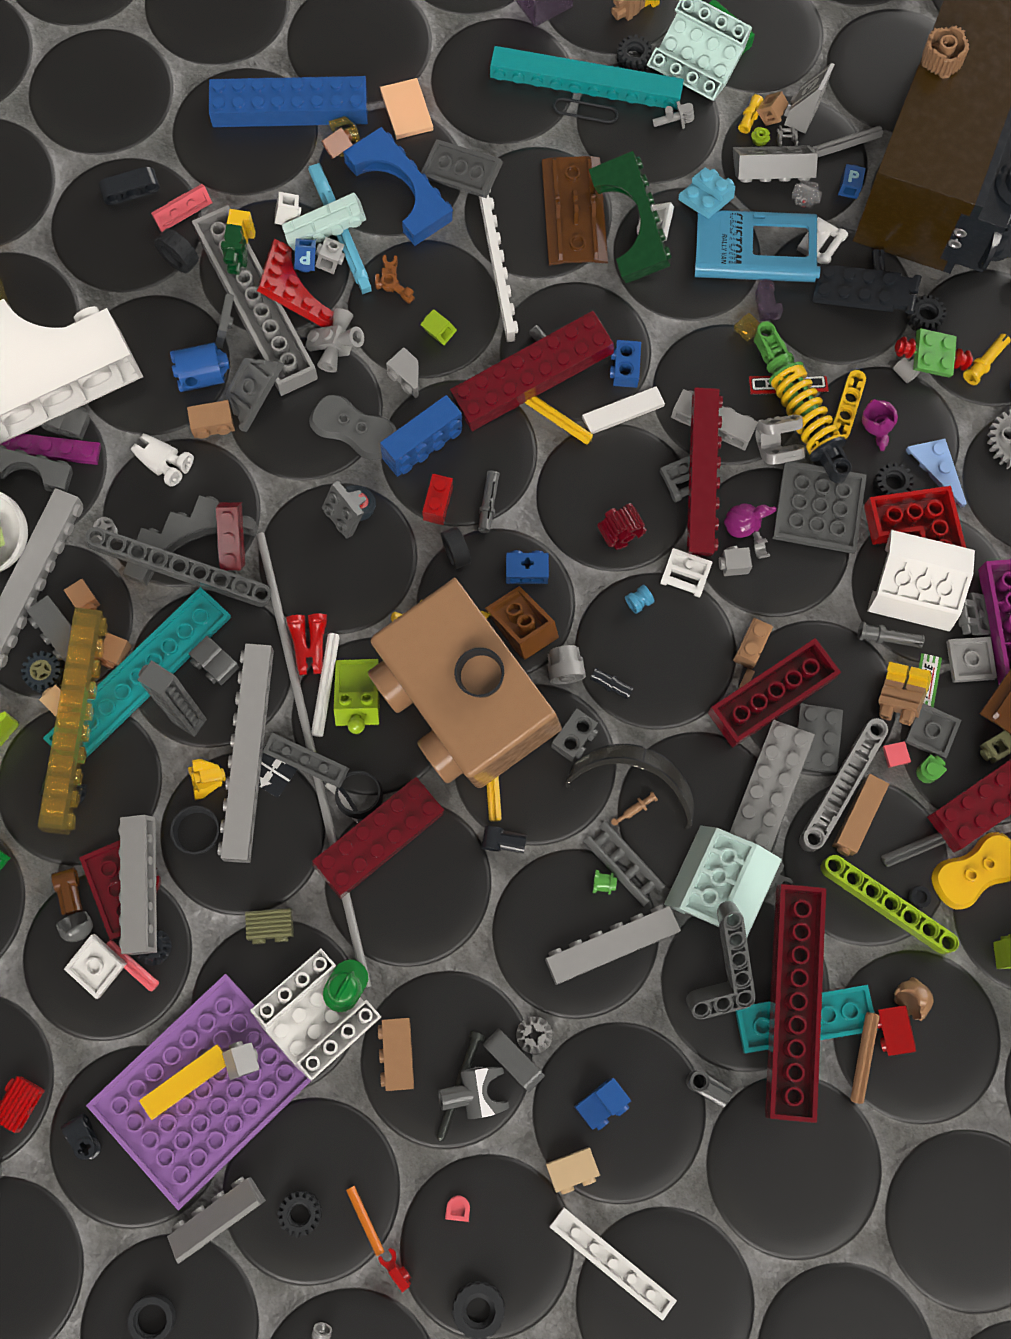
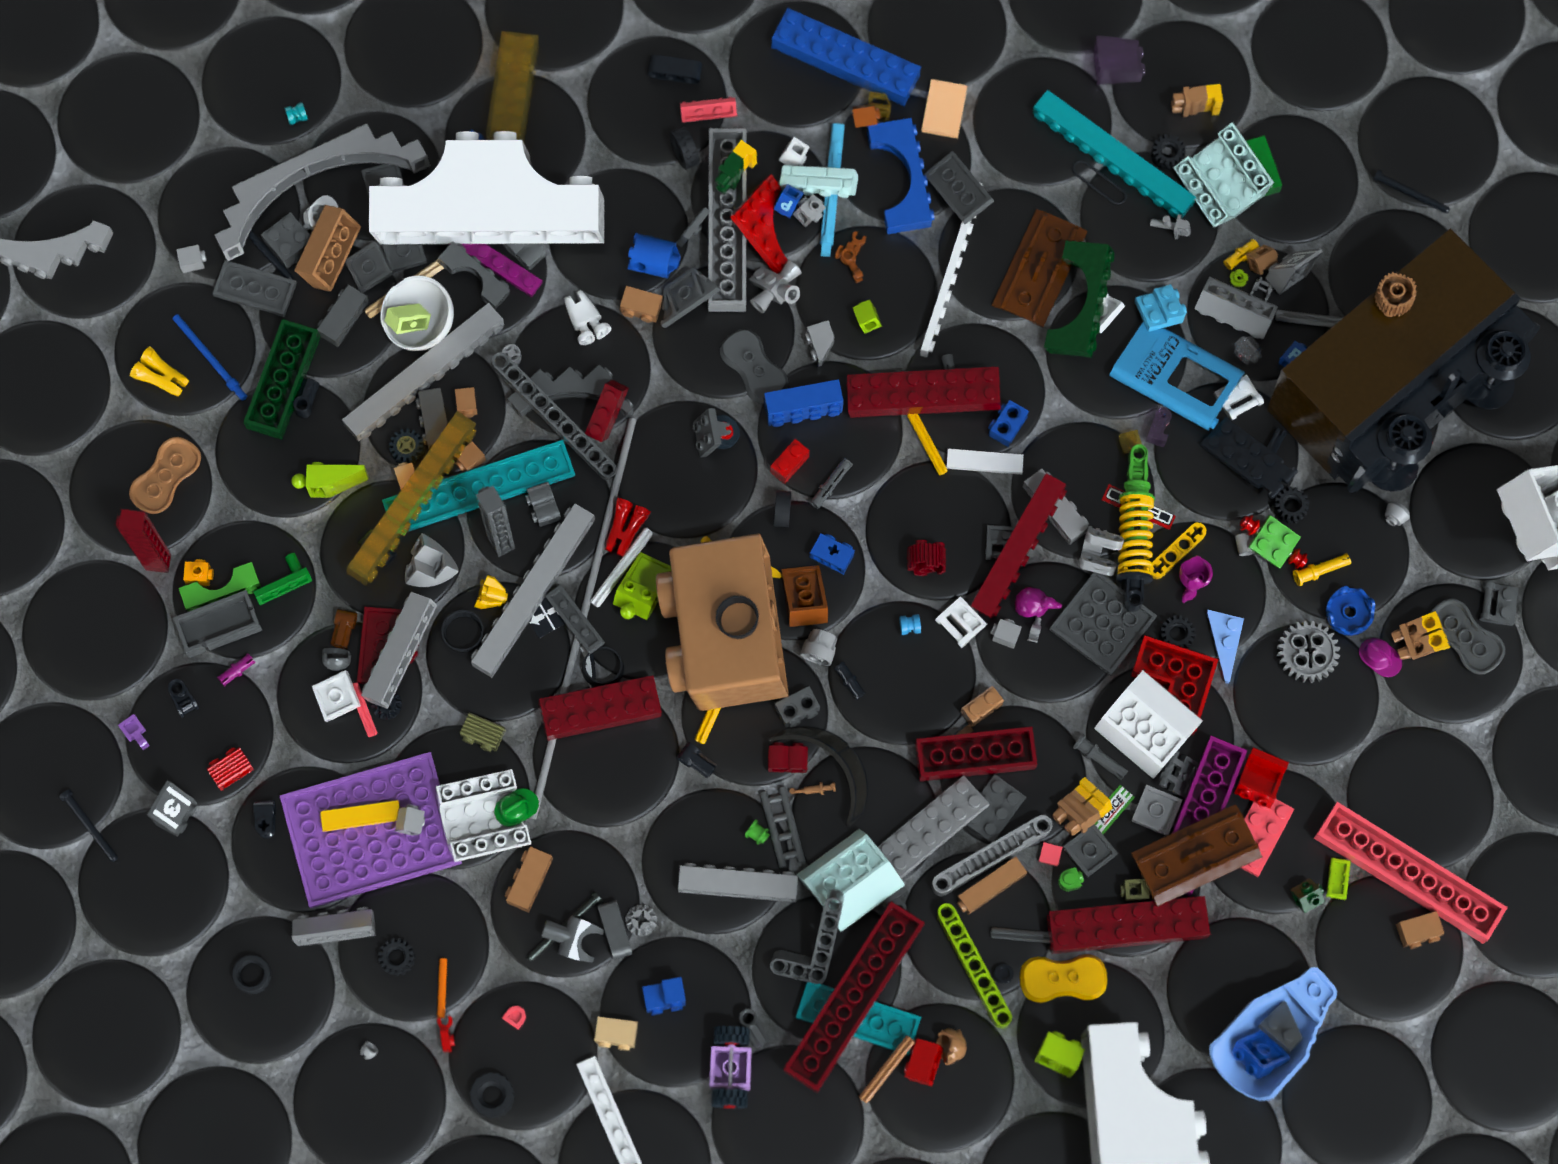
camera: 30 degrees right, 0 degrees up
(125, 779) = (429, 564): none -> light grey brick
(593, 791) = (787, 758): none -> dark red brick
(711, 1145) = (730, 1067): none -> brick

